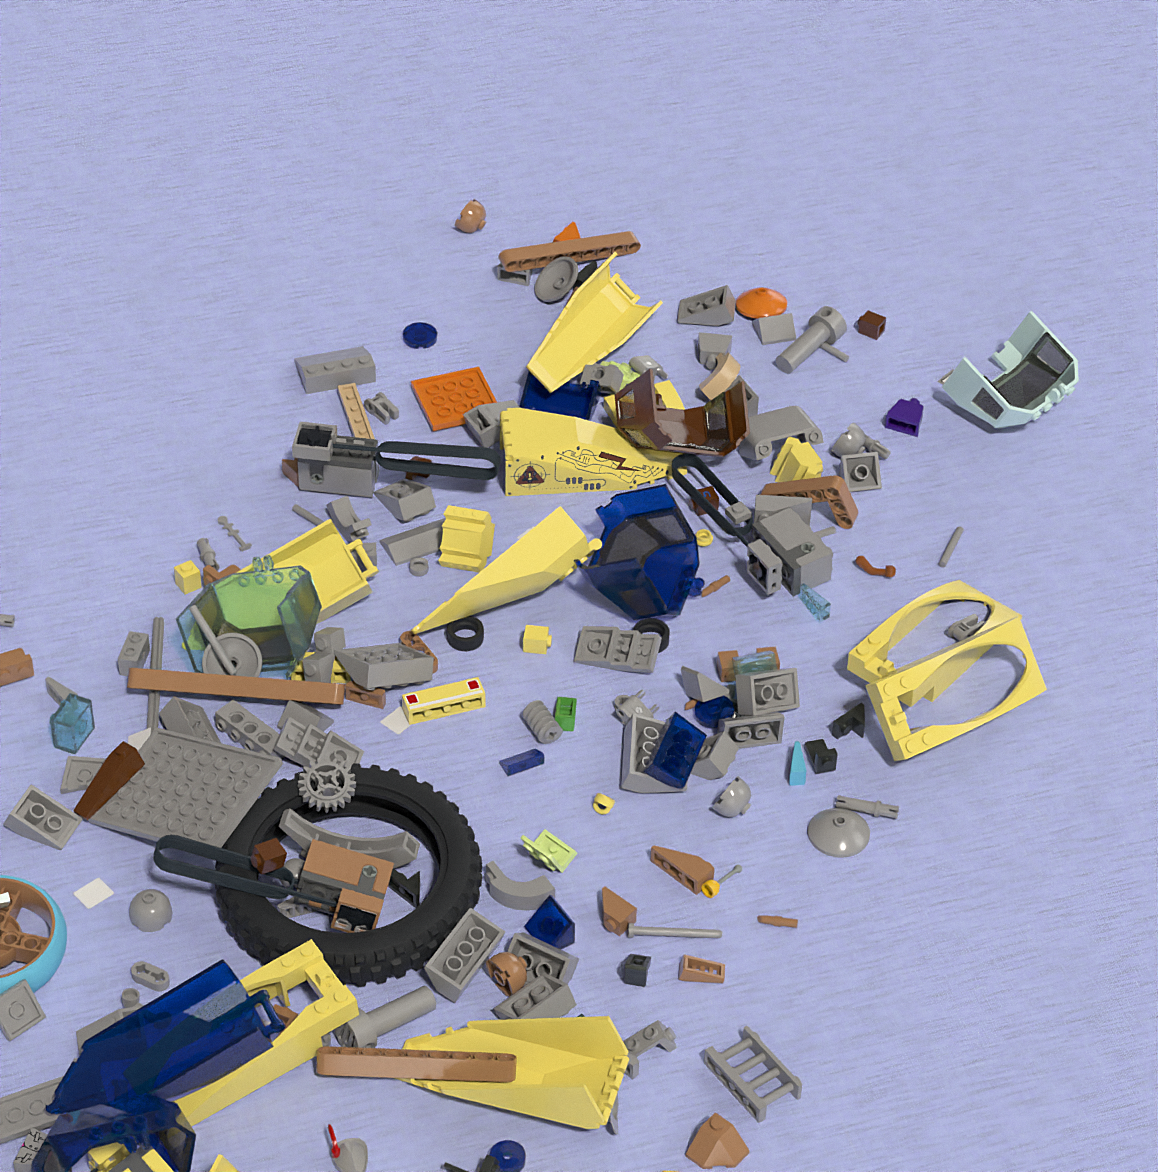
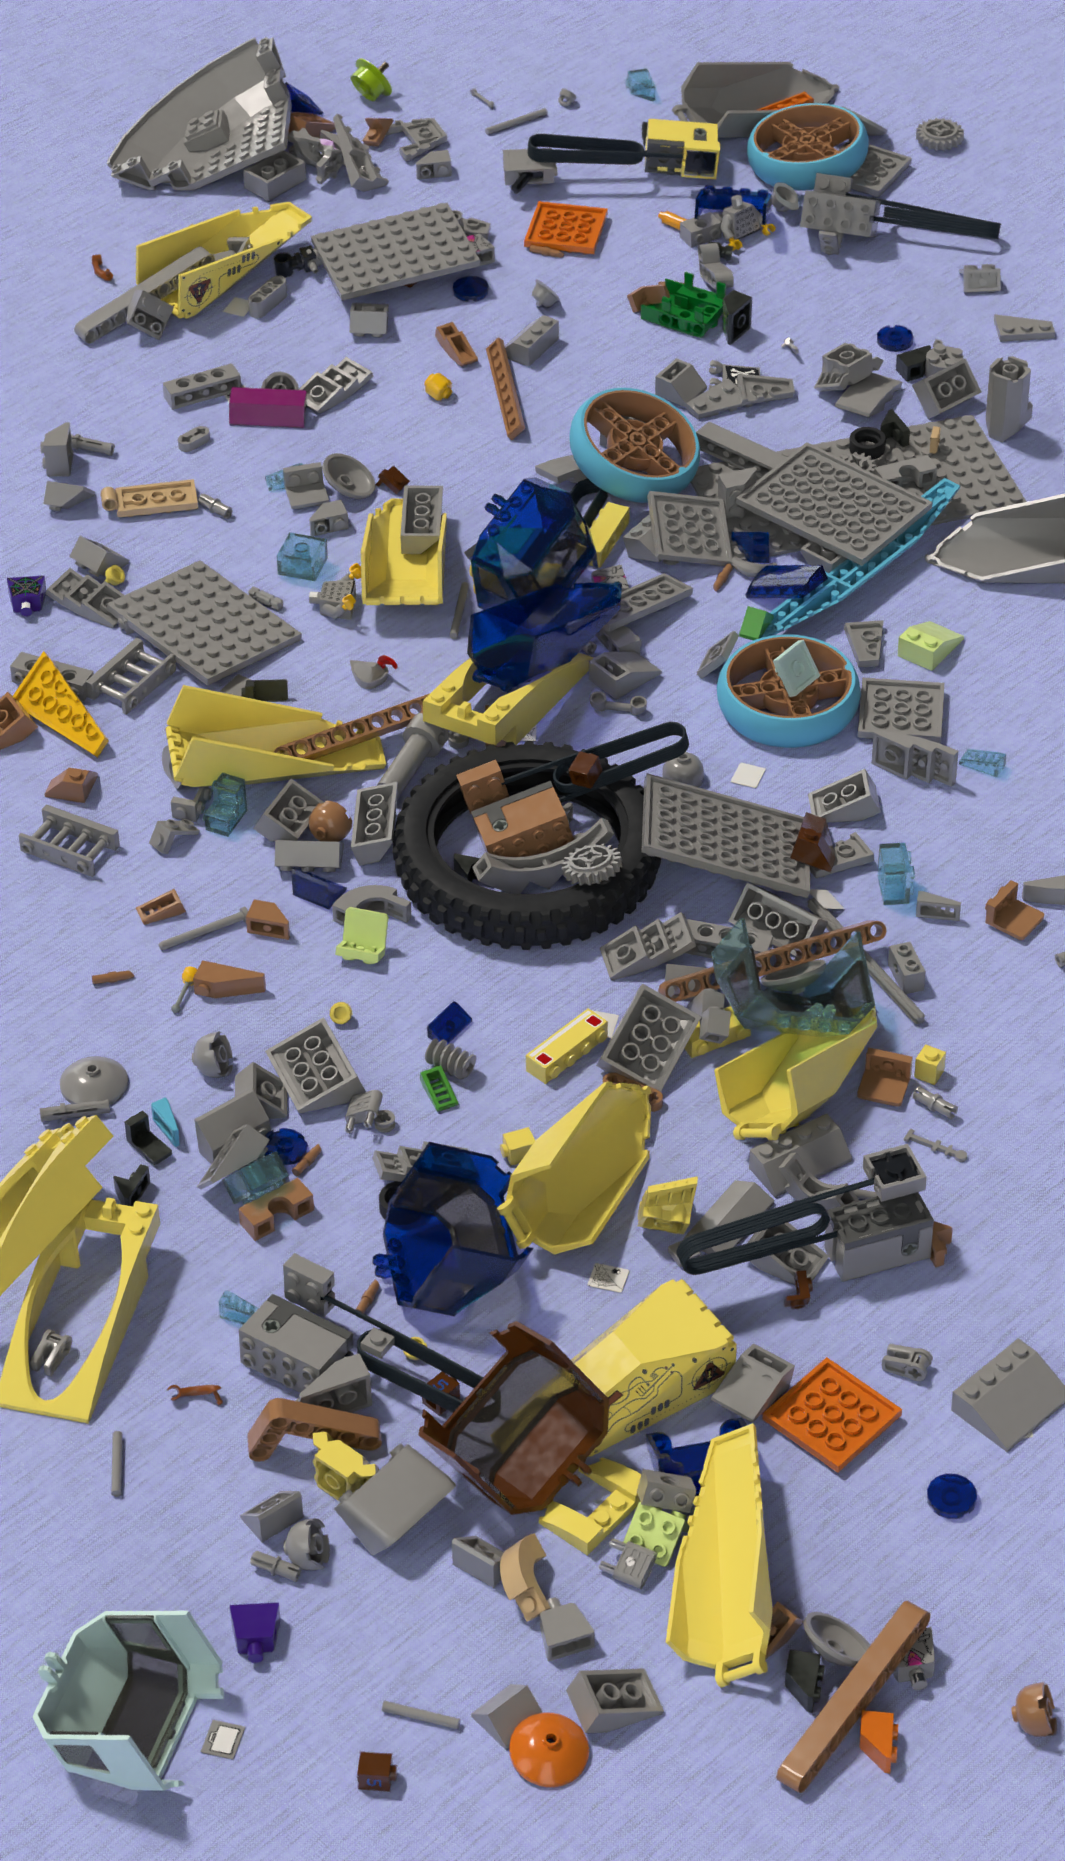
camera: 155 degrees right, 0 degrees up
(150, 976) = (634, 726): light grey beam -> none
(213, 640) = (820, 960): light grey bar -> none
(355, 411) = (928, 1338): tan plate -> none
(418, 566) = (707, 1184): light grey tile -> none
(637, 969) = (218, 877): pearl dark grey slope -> none
(675, 752) = (293, 1065): clear blue slope -> none
(700, 686) = (307, 1152): light grey slope -> none
(825, 326) = (431, 1713): light grey piece -> none

